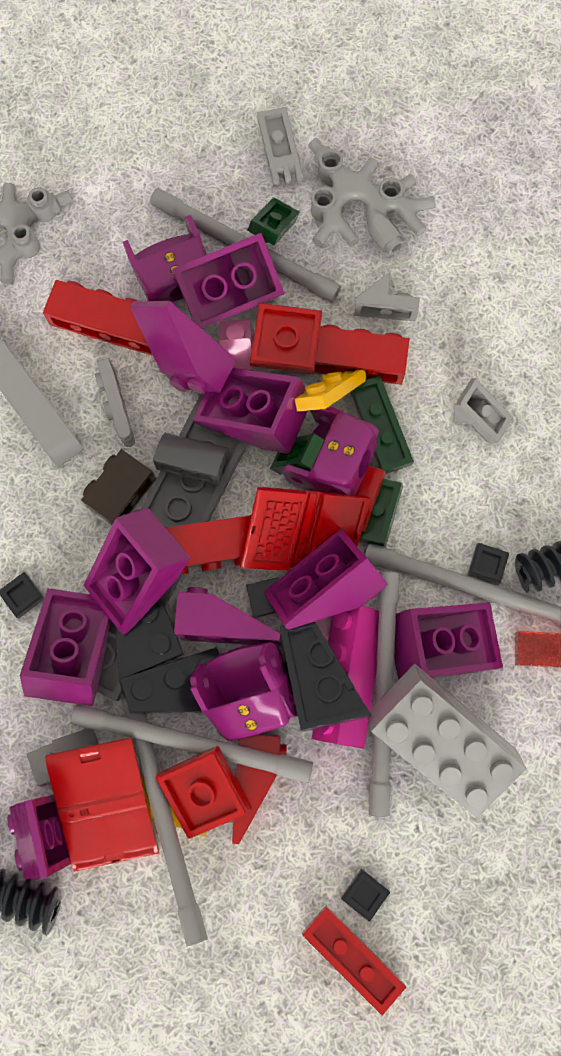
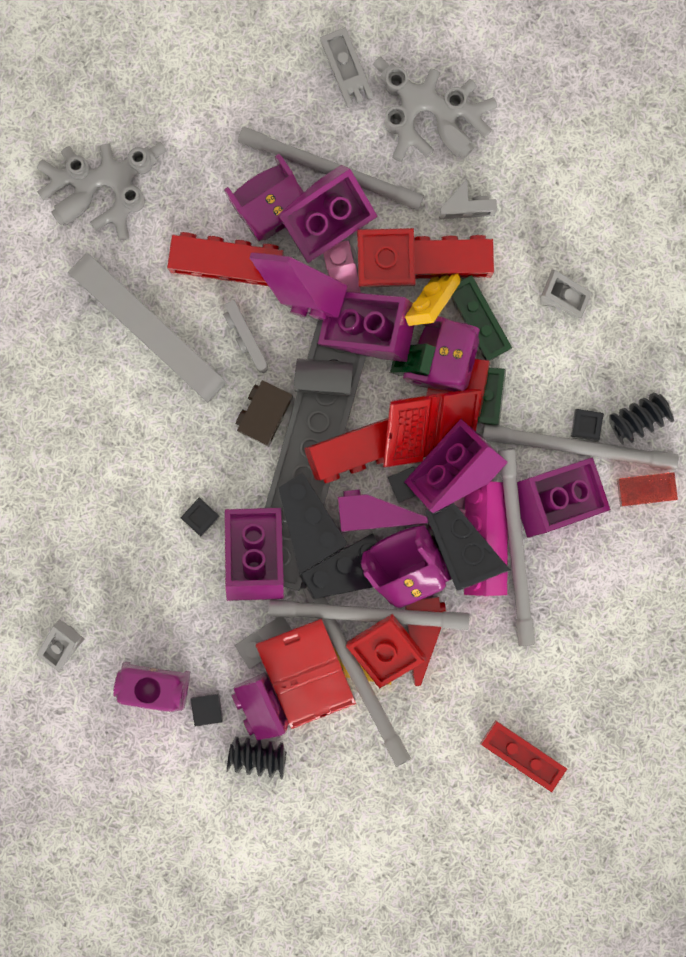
camera: 10 degrees left, 10 degrees up
(134, 568) = (298, 484): magenta slope -> none
(273, 221) = (354, 145): dark green plate -> none
(365, 895) = (525, 706): black tile -> none
(445, 741) = (571, 578): light grey brick -> none

